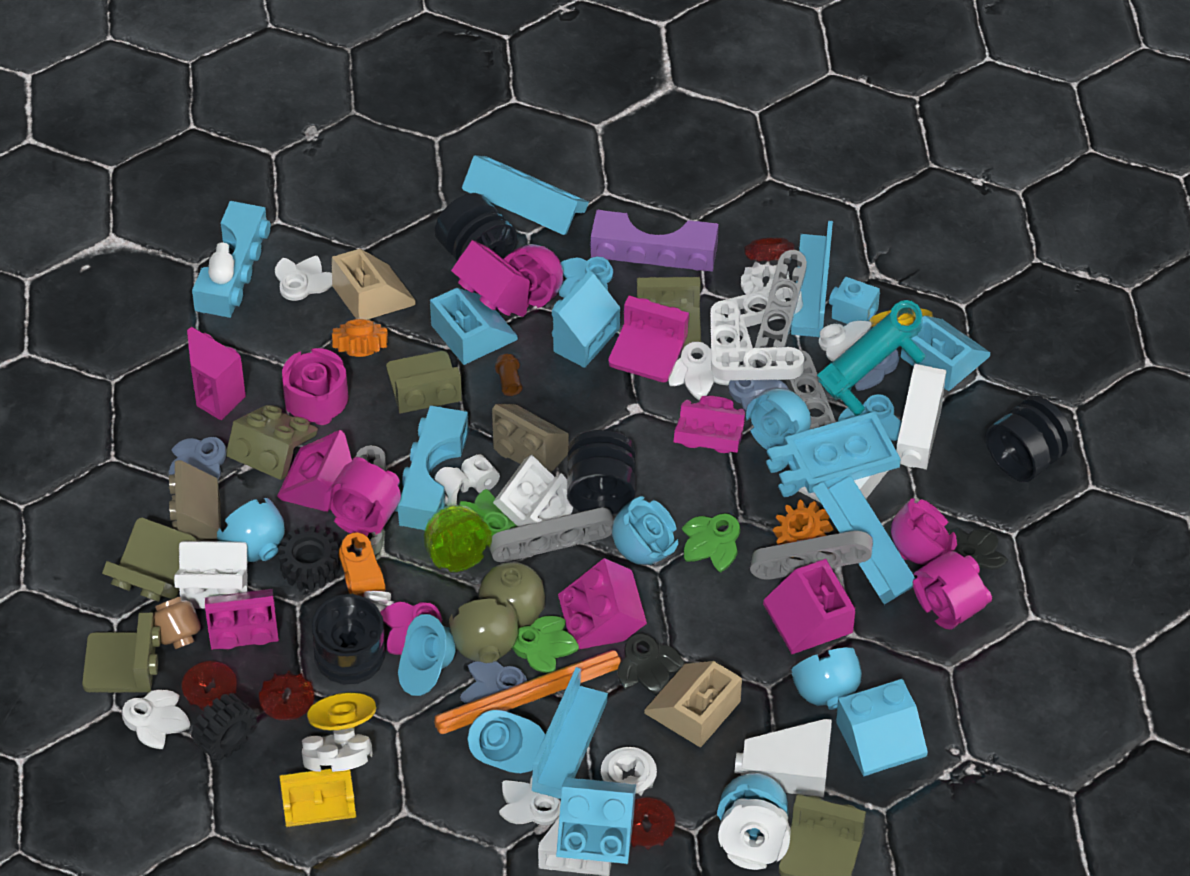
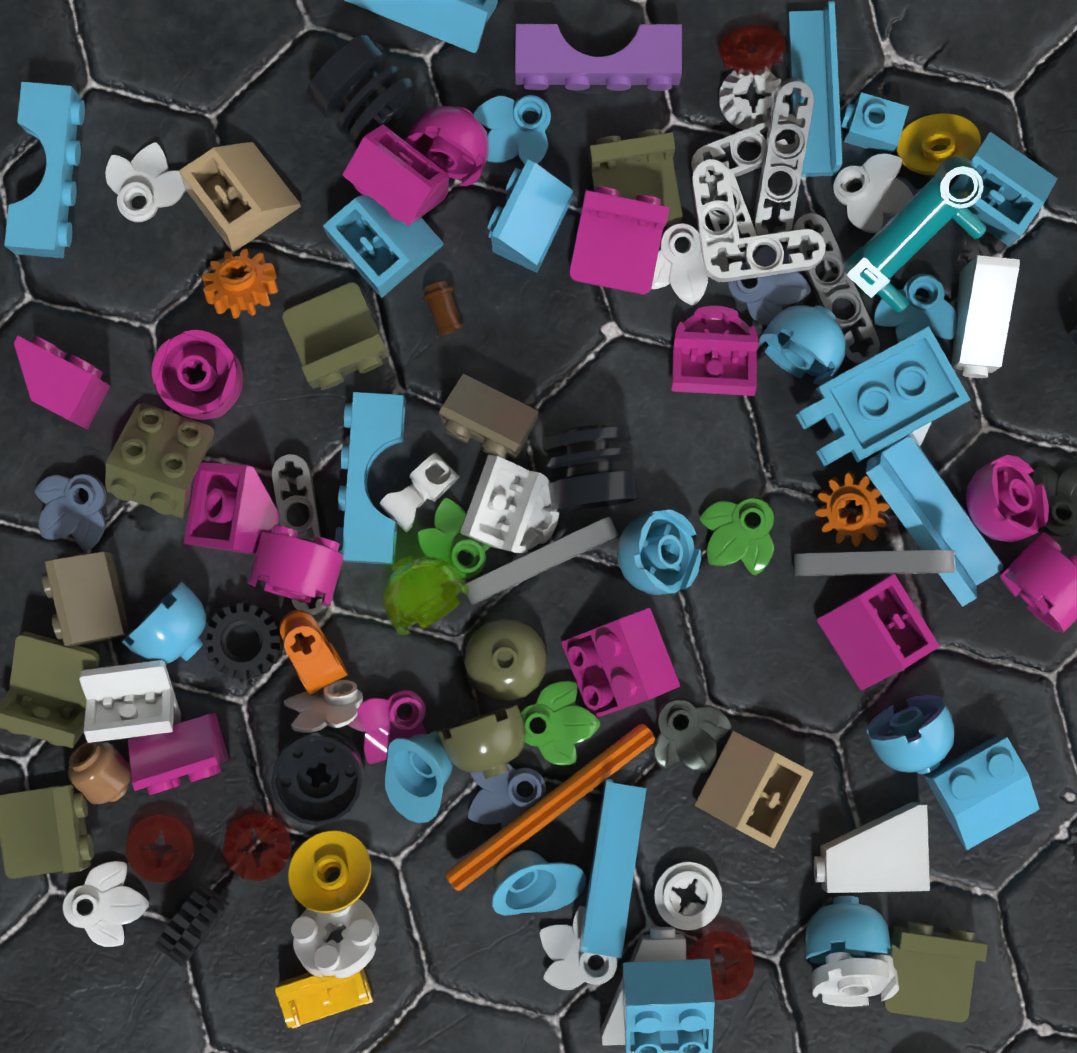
camera: 10 degrees left, 35 degrees up
(221, 264) = (34, 204): white cylinder -> none

